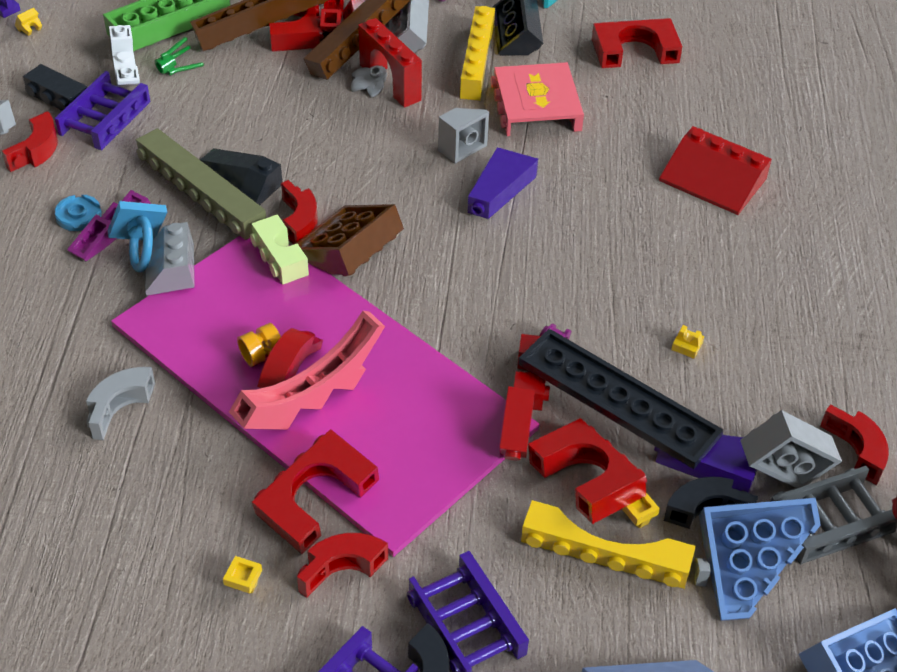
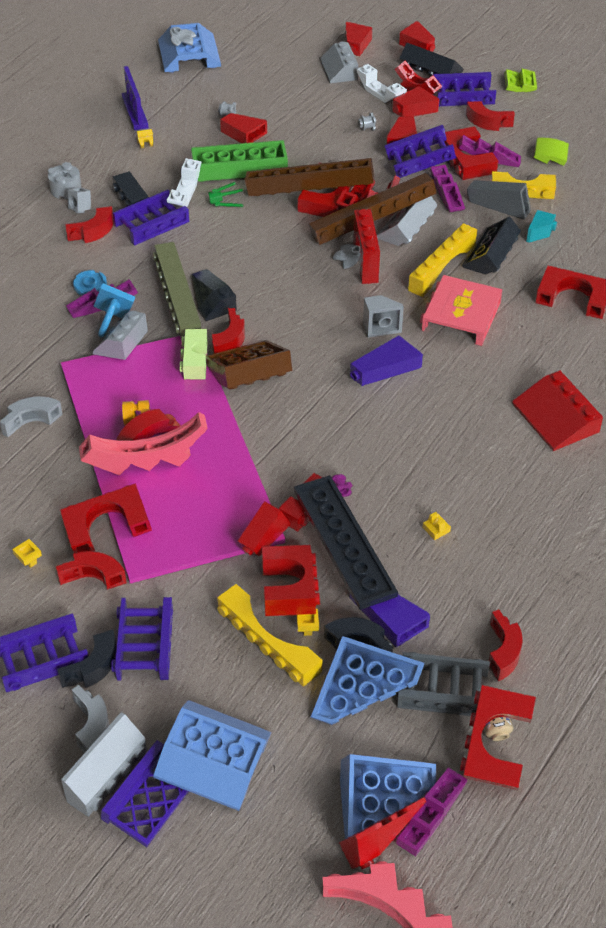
camera: 30 degrees right, 0 degrees up
(701, 571) = (318, 679): light grey tile -> none
(790, 450) = (434, 624): light grey brick -> none

